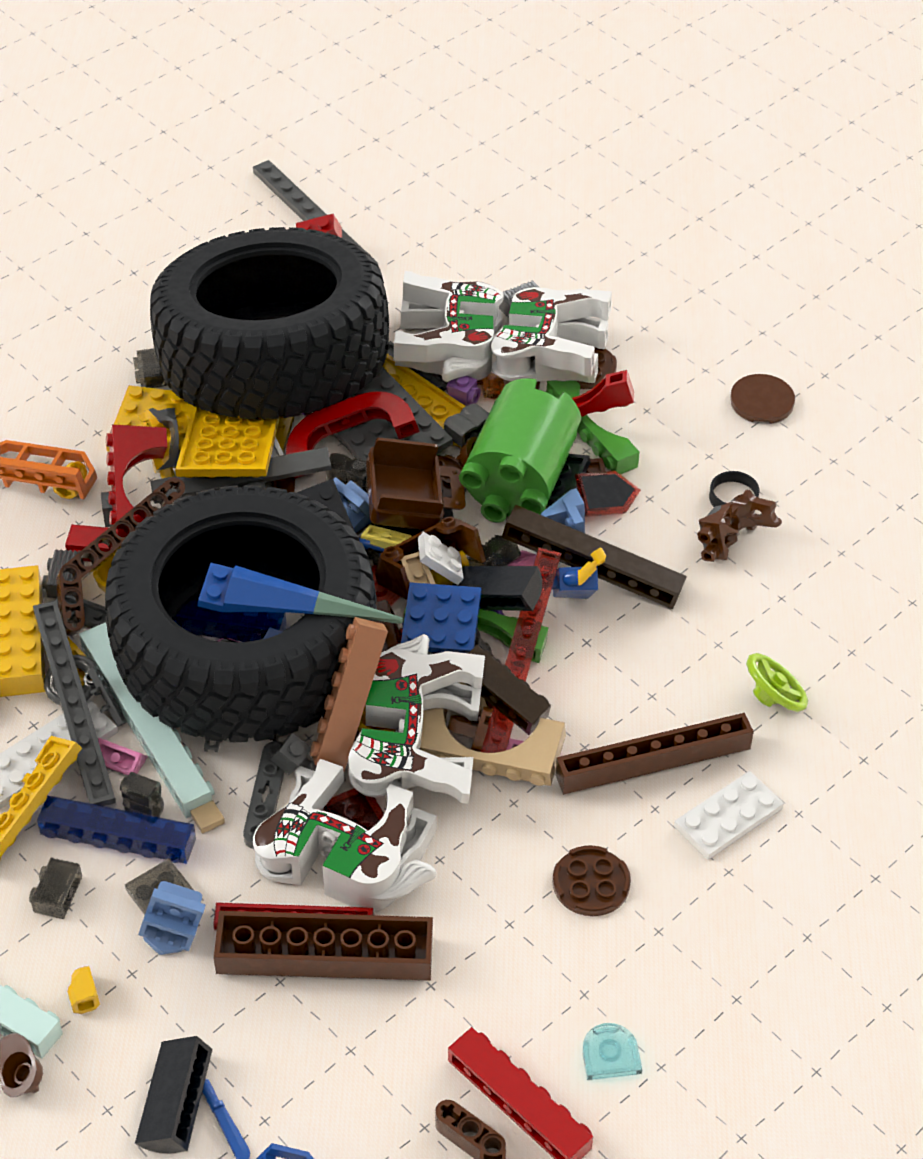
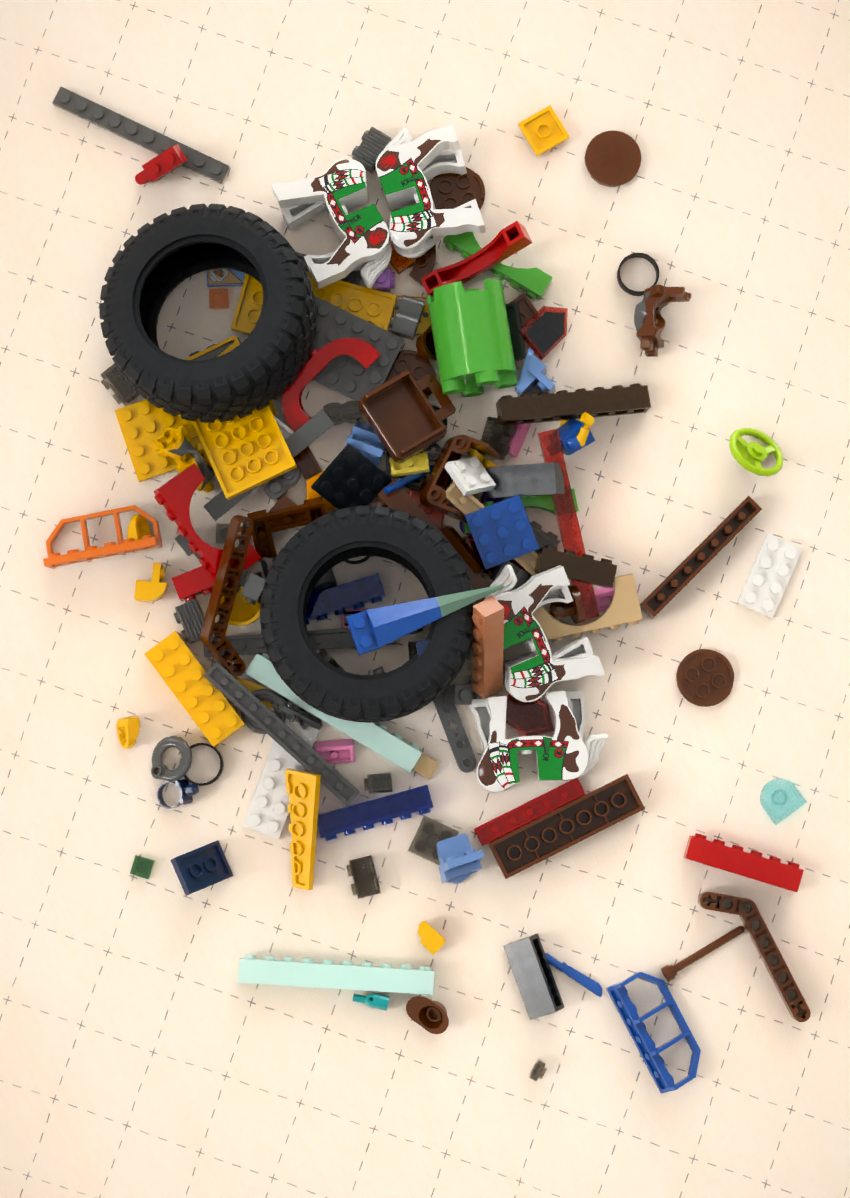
camera: 30 degrees left, 35 degrees up
(46, 531) = (152, 590): none -> yellow brick
(703, 351) = (543, 131): none -> yellow plate

